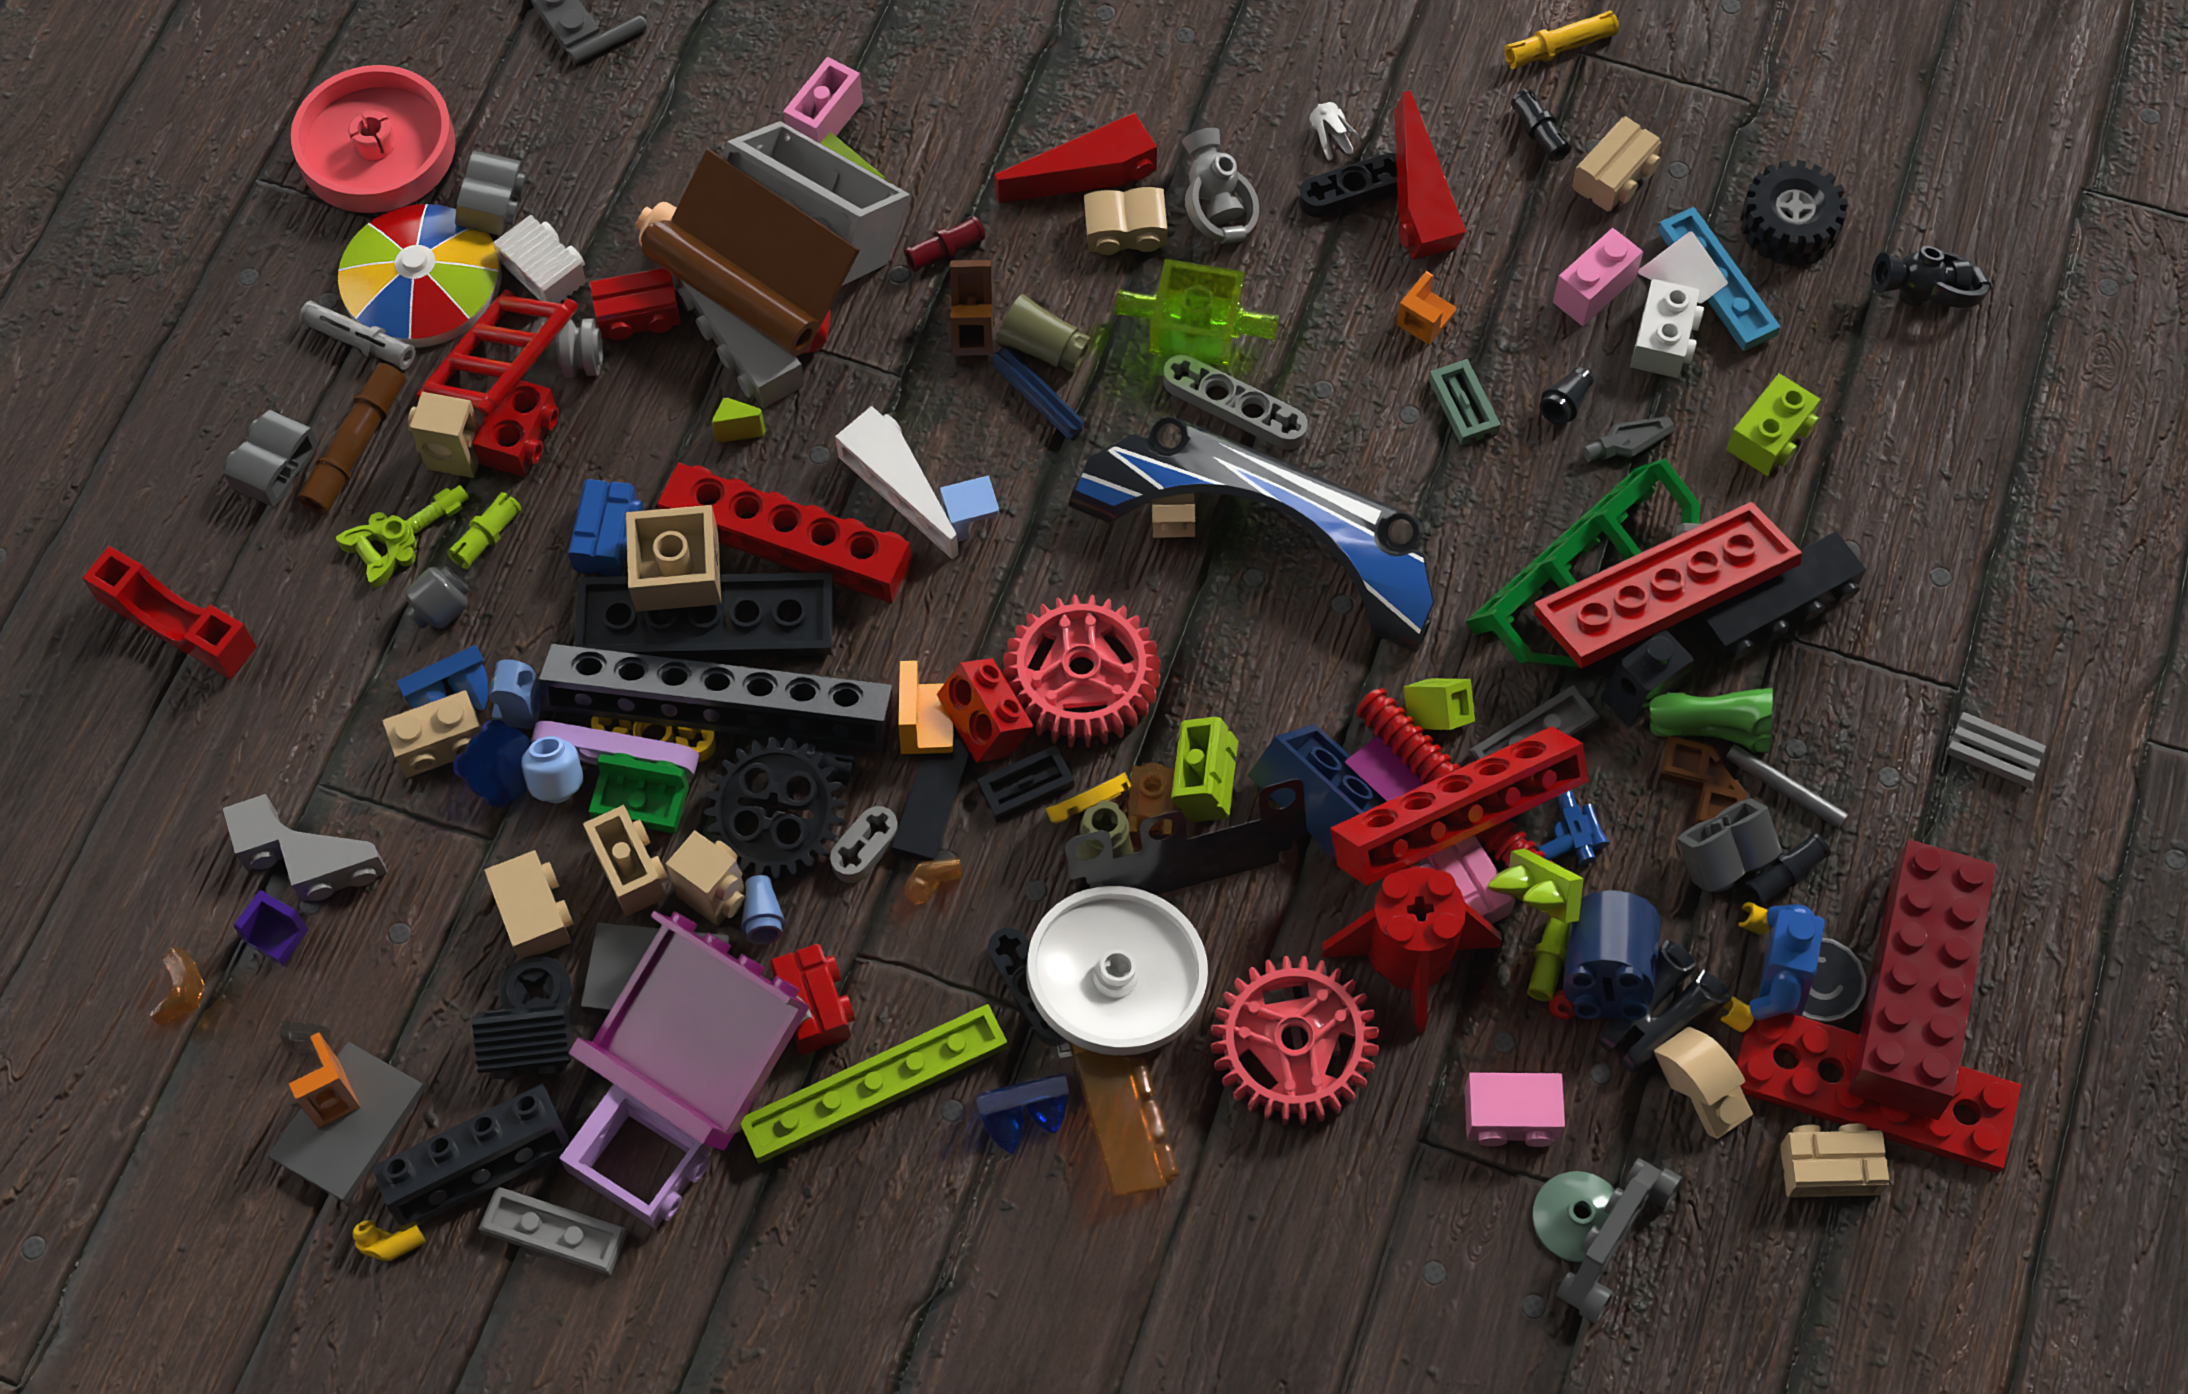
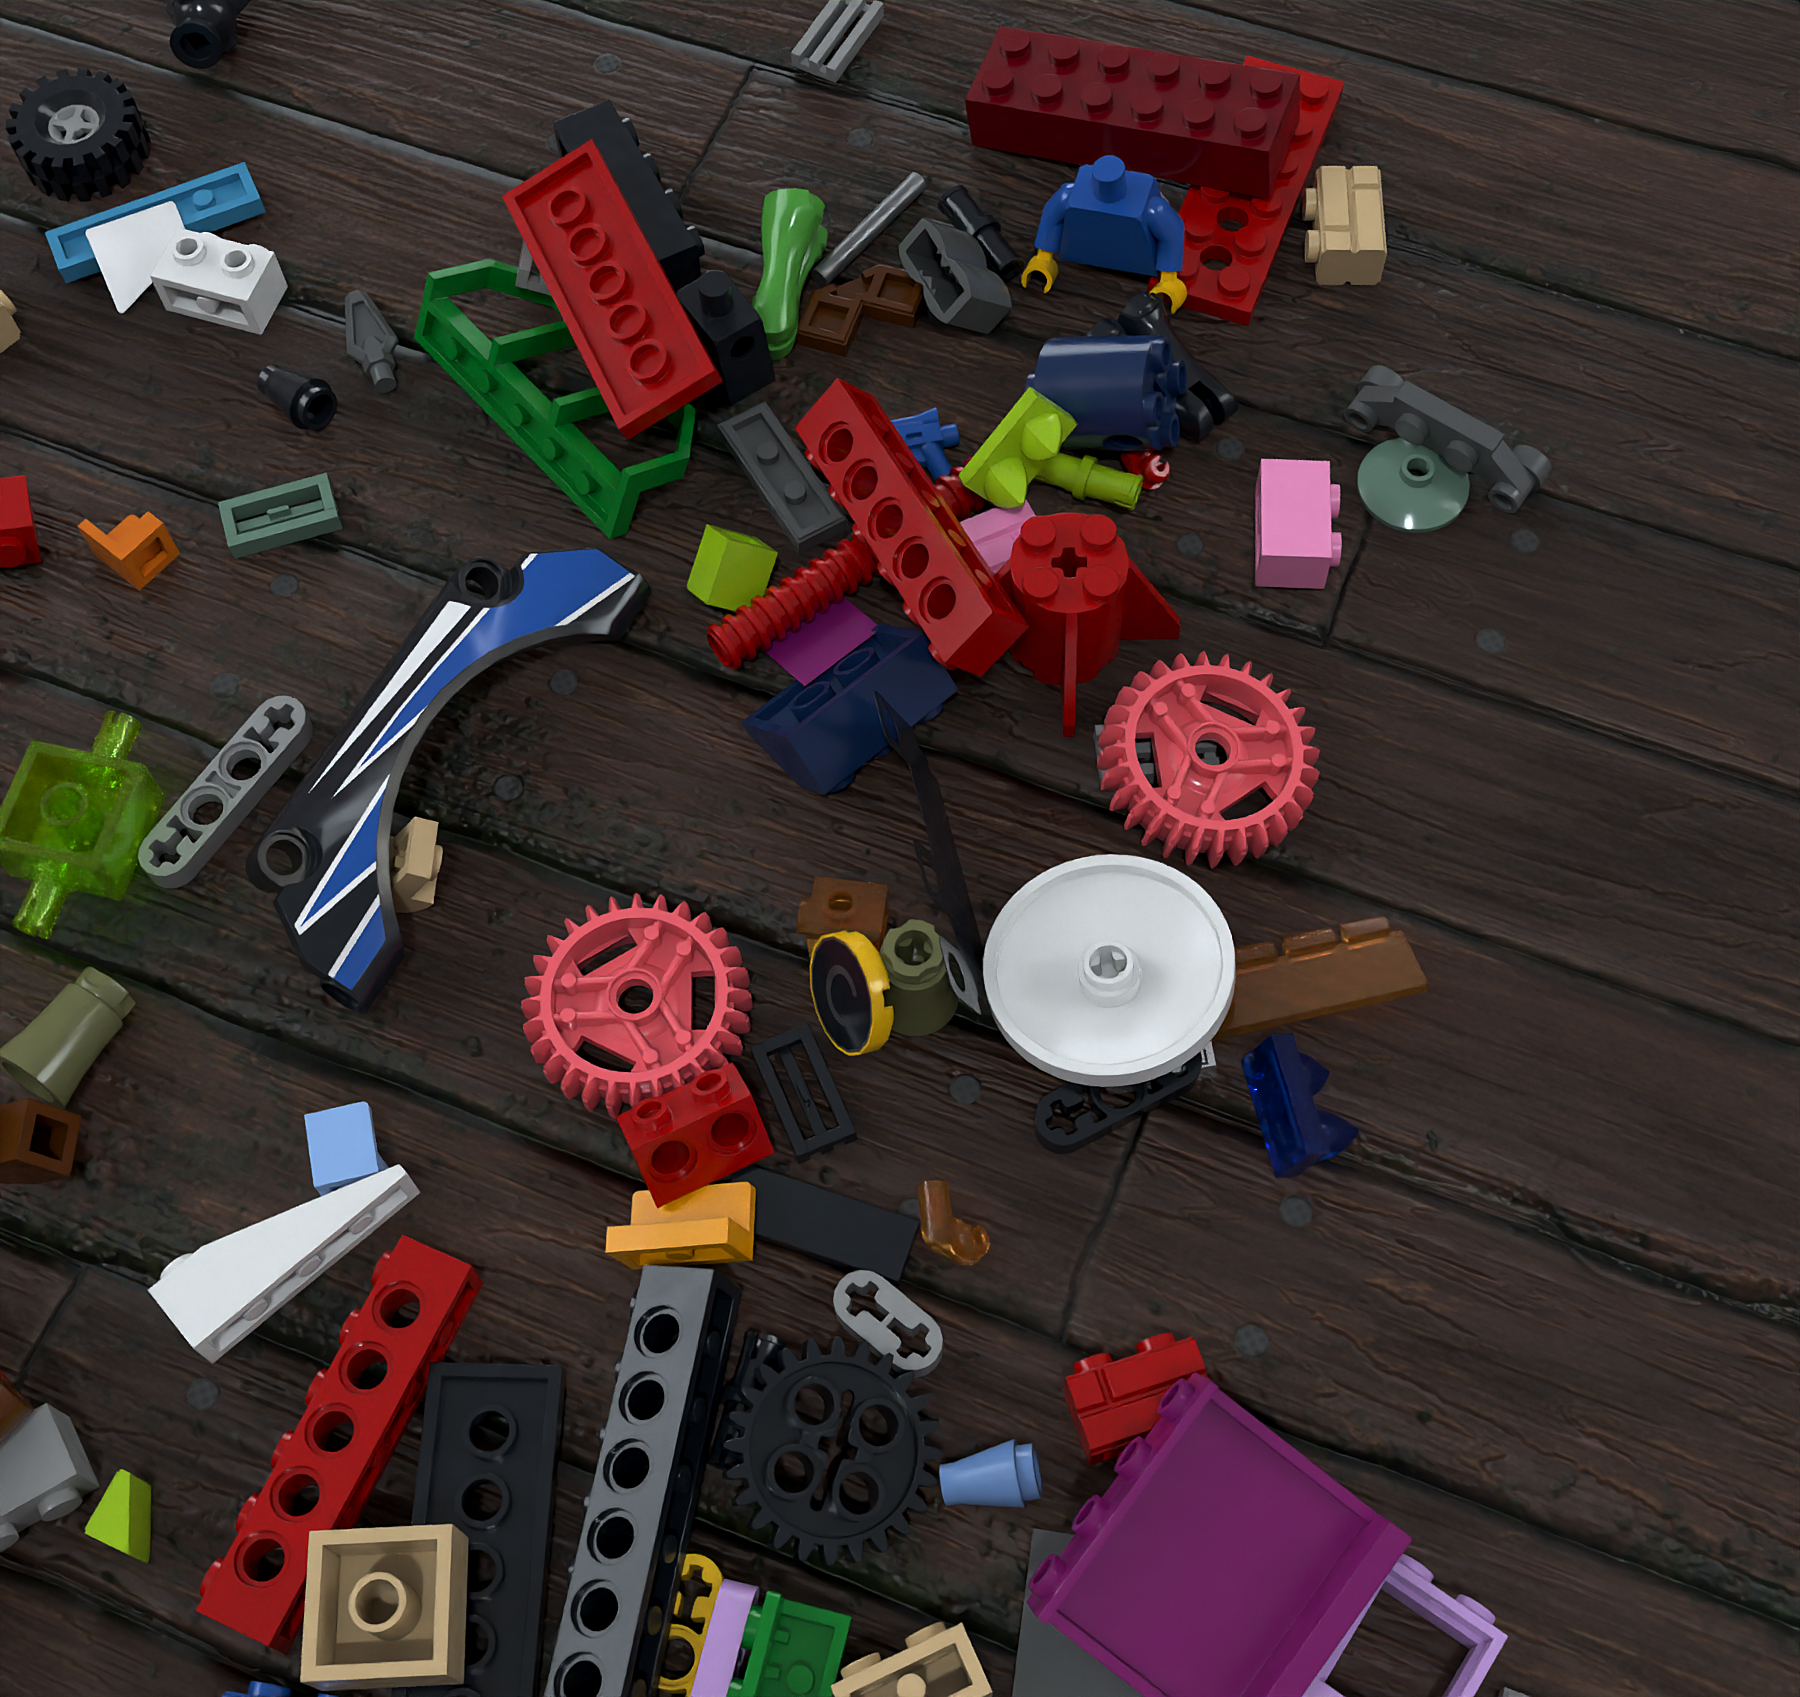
camera: 85 degrees left, 0 degrees up
(707, 878) = (954, 1547): tan brick -> none
(873, 1083) = (1269, 1311): lime plate -> none
(1038, 393) = (158, 1056): dark blue axle -> none
(1204, 769) = (812, 844): lime brick -> none
(1597, 276) = (126, 342): bright pink brick -> none
(1709, 1076) = (1246, 328): tan brick -> none
(1774, 424) = (382, 184): lime brick -> none

